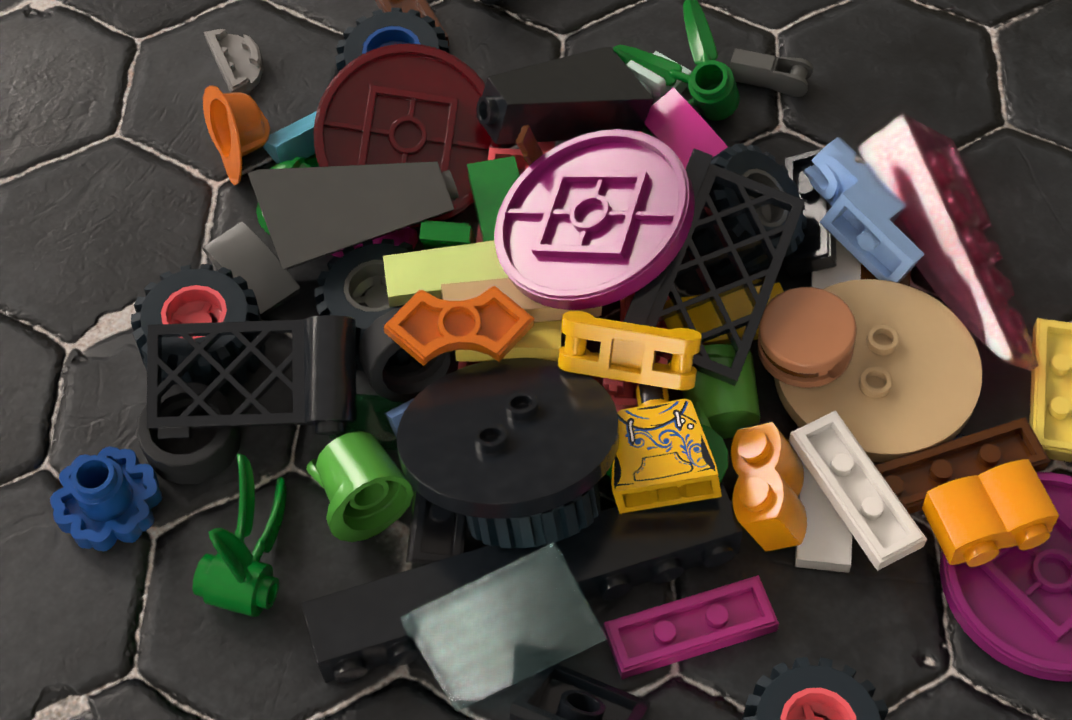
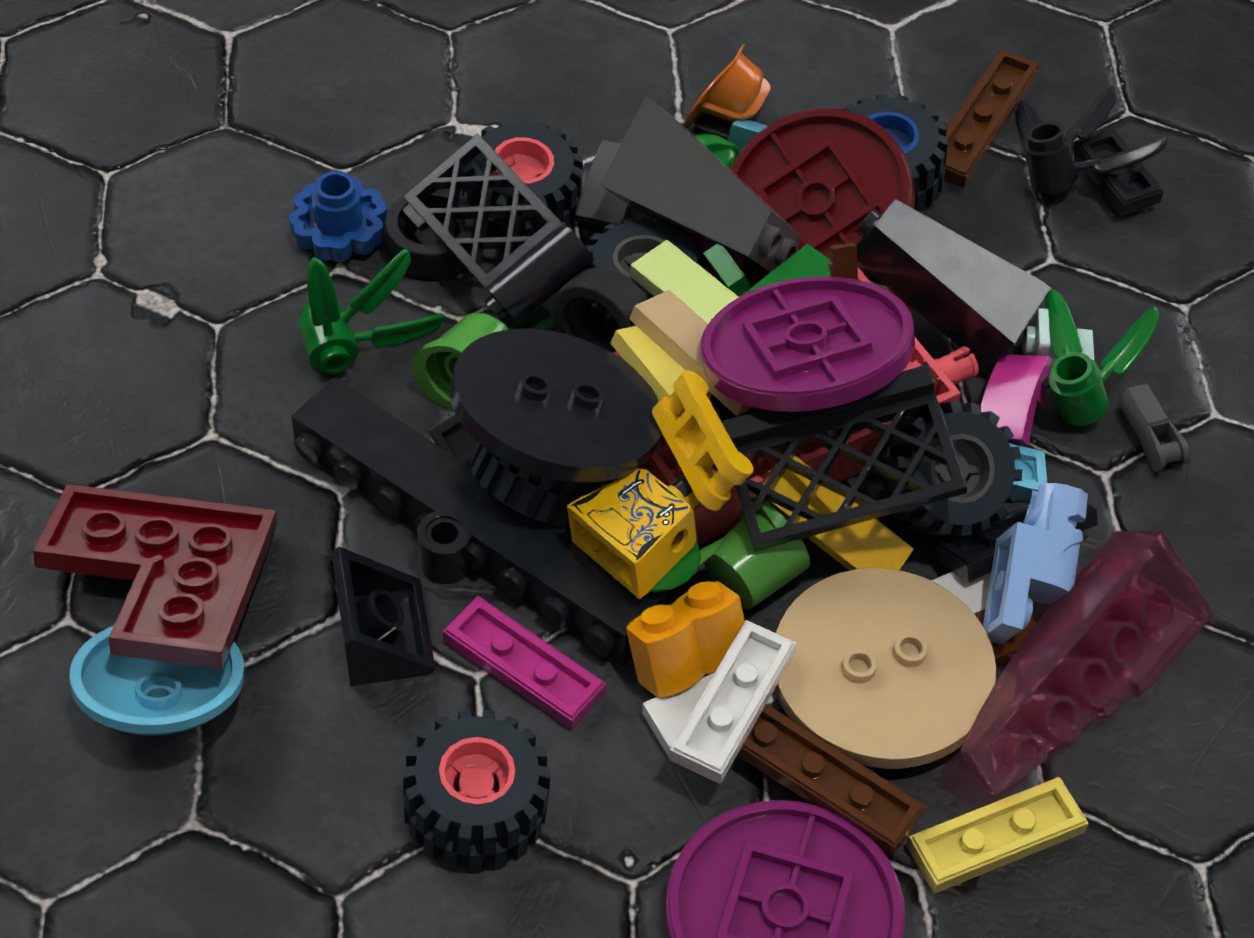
camera: 50 degrees right, 5 degrees down
(237, 59) = (807, 59): light grey tile -> none
(436, 326) = (647, 331): orange tile -> none
(504, 626) = (407, 513): clear light blue piece -> none
(806, 337) = (853, 583): nougat head -> none
(990, 513) = (789, 813): light orange brick -> none

